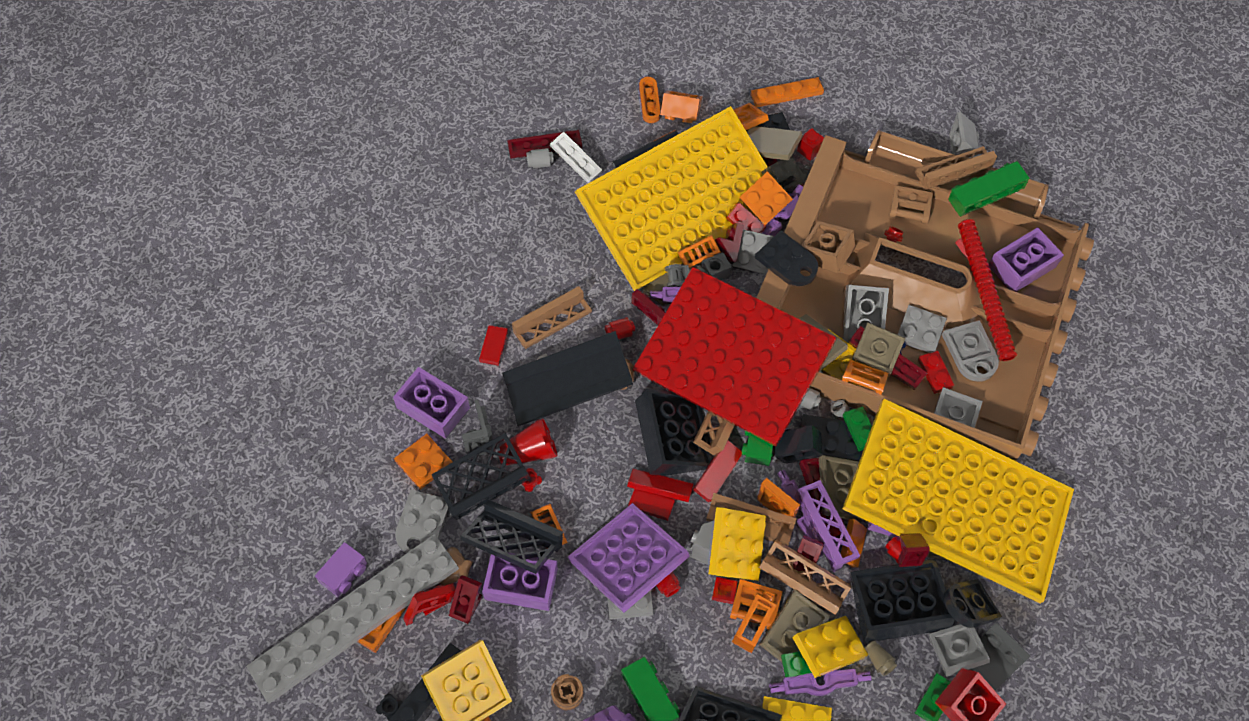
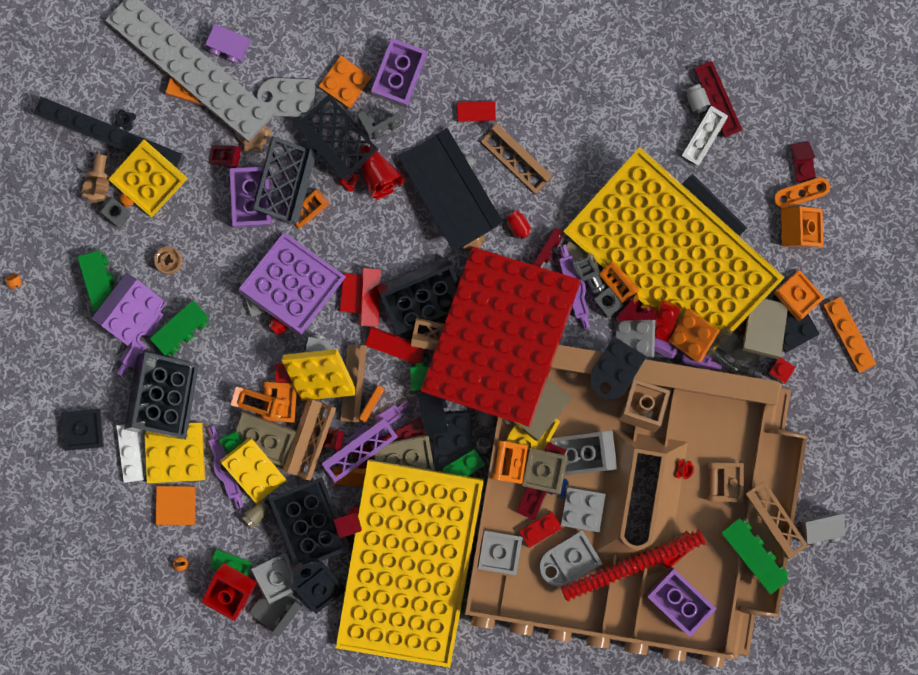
camera: 75 degrees right, 25 degrees up
(429, 601) = (213, 120): red wing -> none
(620, 94) = (803, 161): none -> dark red slope

